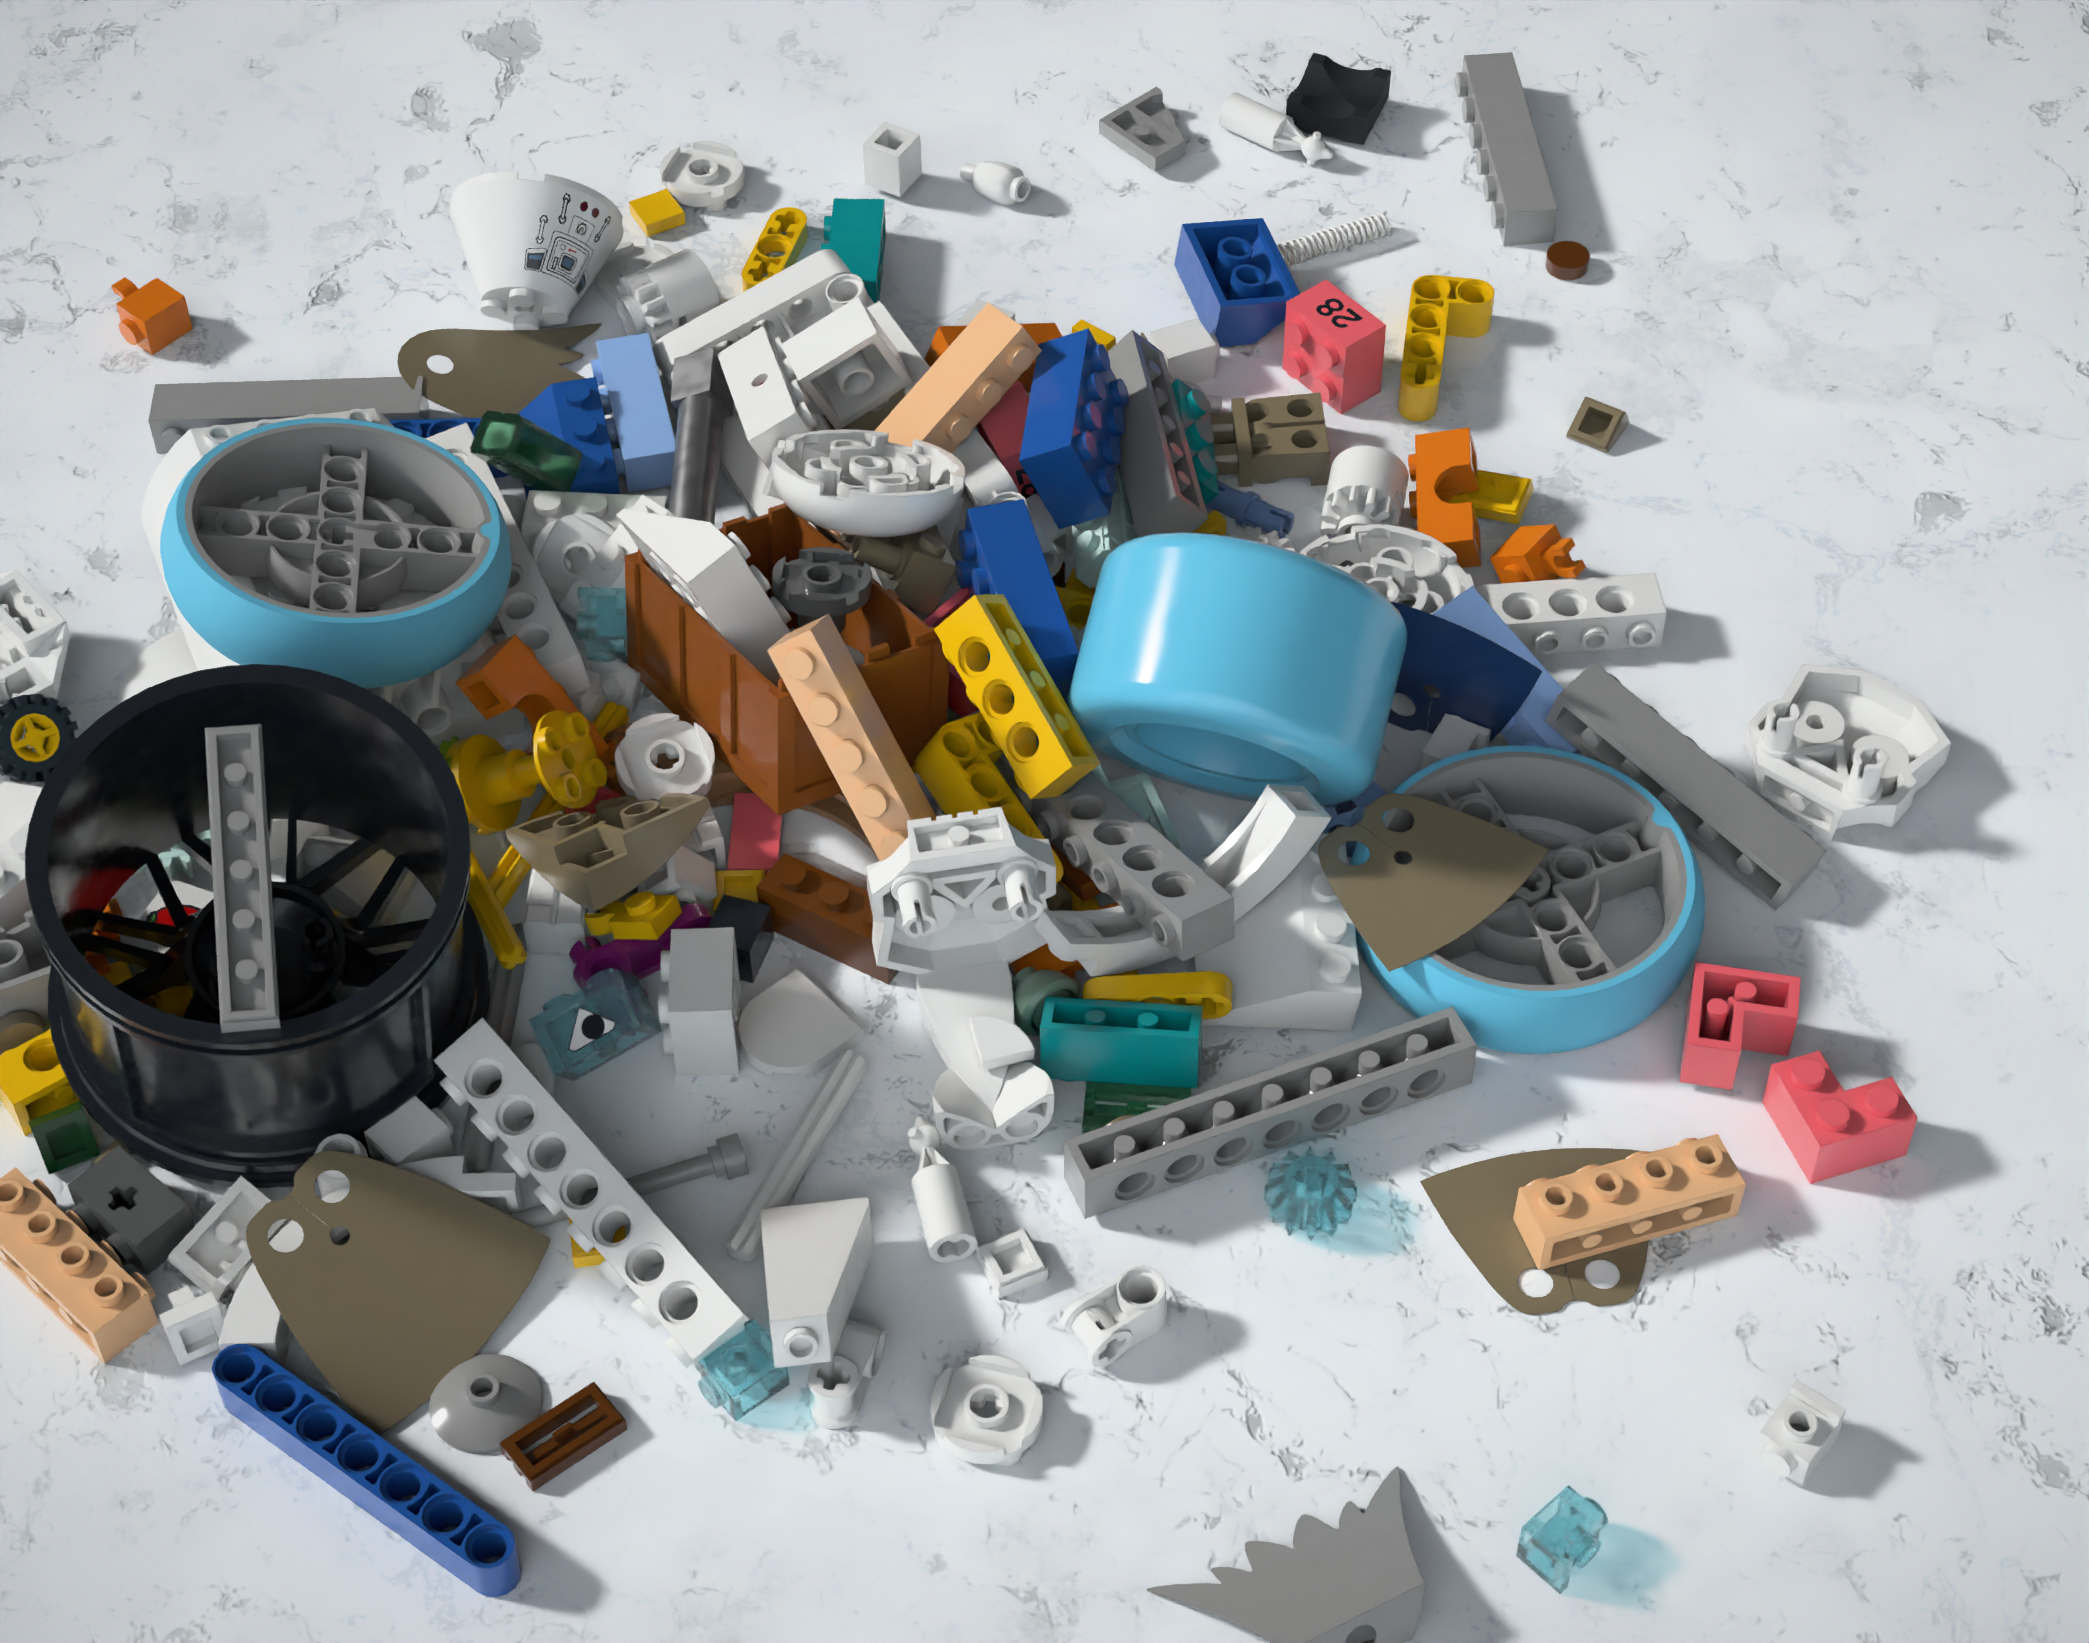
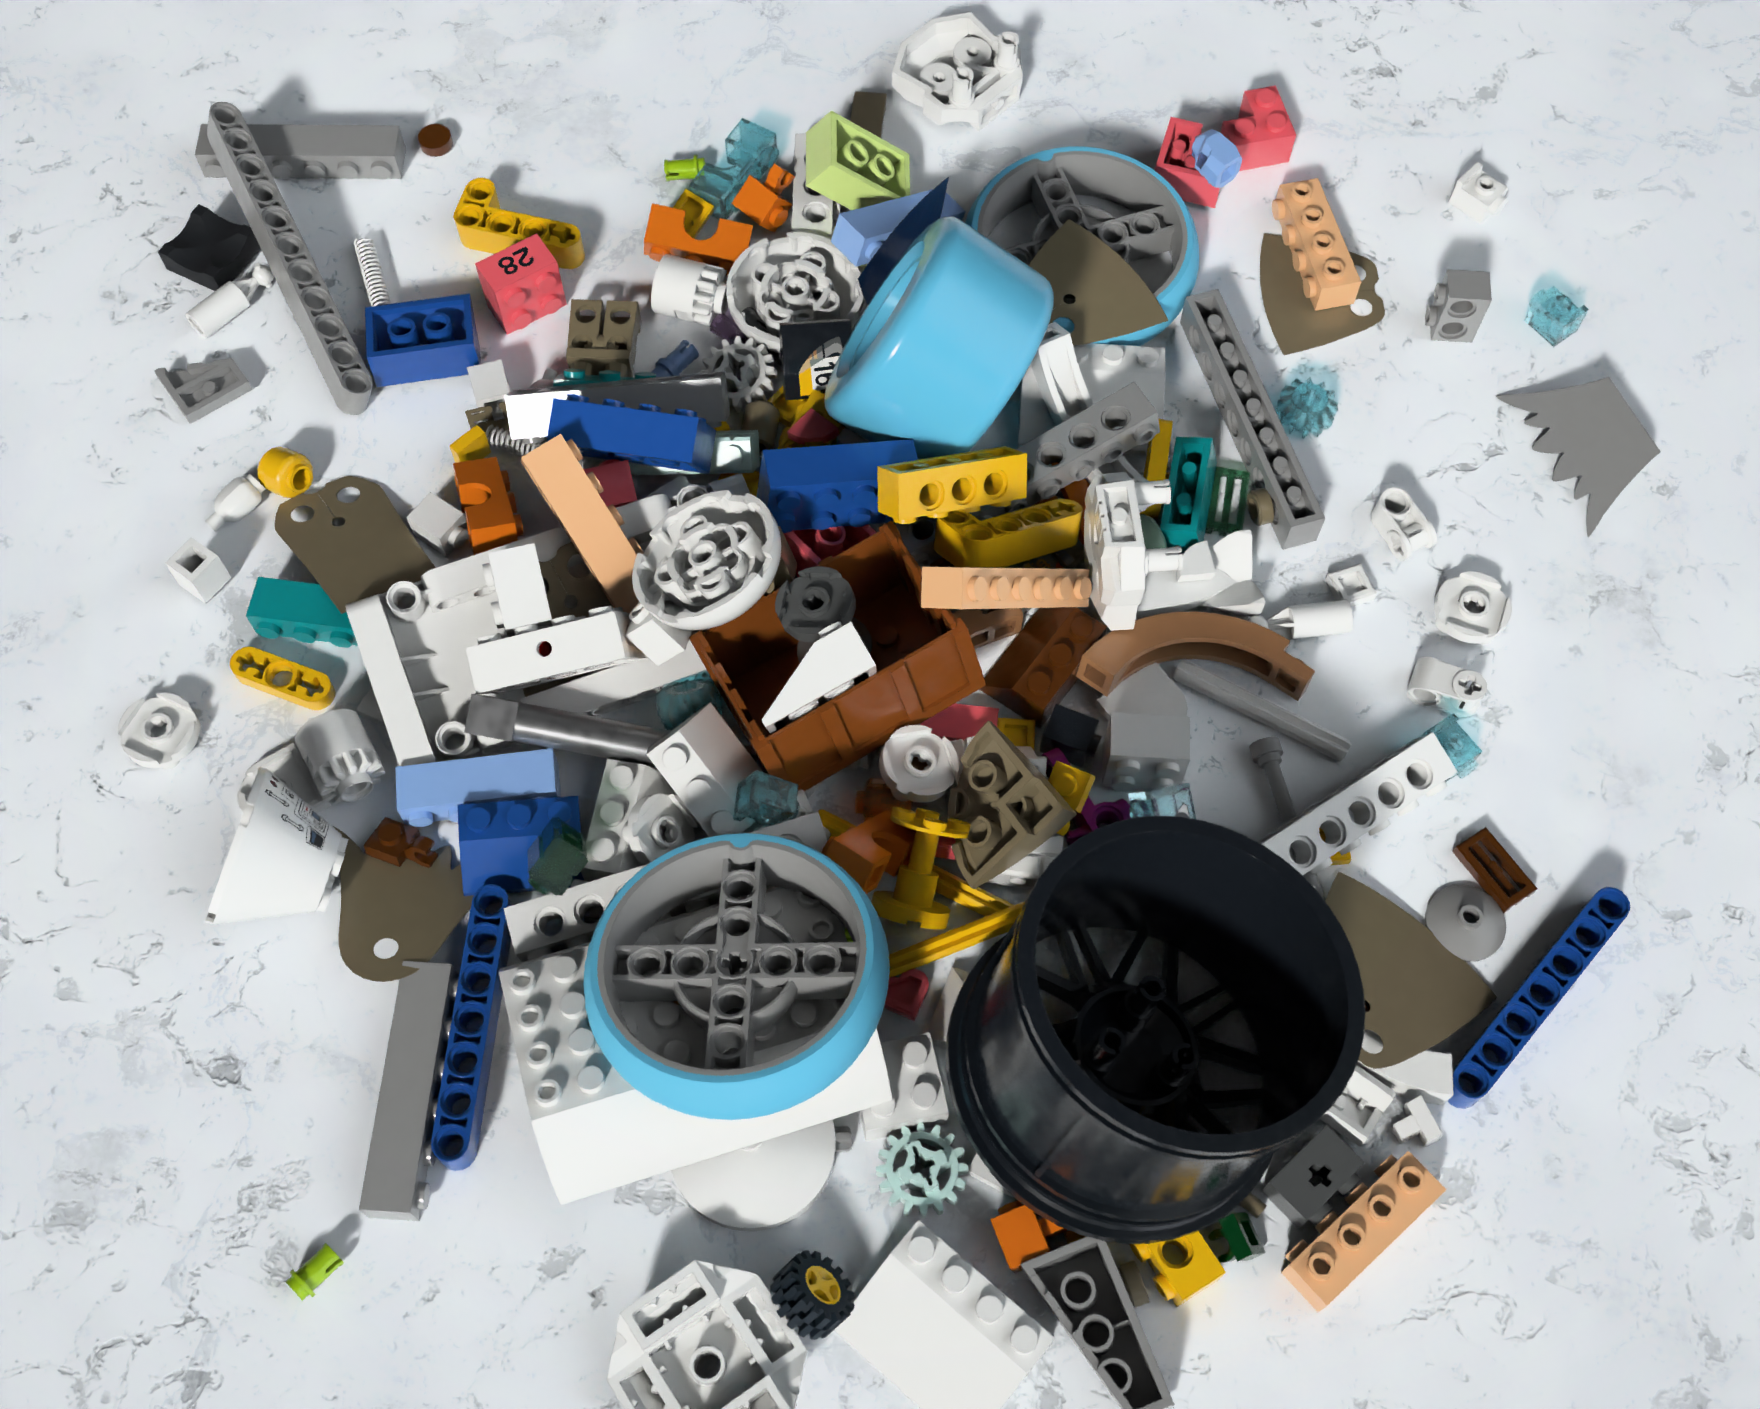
camera: 85 degrees left, 15 degrees up
(96, 373) = (314, 1272): none -> lime pin
(151, 314) = (233, 1229): orange brick -> none
(242, 879) = (1222, 979): light grey tile -> none
(571, 361) = (397, 842): none -> reddish brown plate
(657, 212) = (197, 772): yellow tile -> none
(813, 1274) = (1392, 694): white slope -> none
(876, 1001) = (1194, 637): none -> medium nougat arch
(929, 275) = (363, 553): none -> dark tan piece
(1036, 207) = (285, 472): none -> yellow head
(1336, 131) = (289, 259): none -> light grey beam
(1529, 1376) = (1459, 305): none -> light grey brick
(1584, 496) = (683, 168): none -> lime pin
(1596, 614) = (854, 164): none -> yellowish green brick
(1597, 425) = (618, 151): dark tan slope -> none
(1611, 548) = (751, 152): none -> clear light blue arch
(1702, 795) = (989, 150): light grey brick -> none
(1709, 1018) = (1216, 158): none -> light blue rock
(1718, 660) = (869, 111): none -> dark tan slope

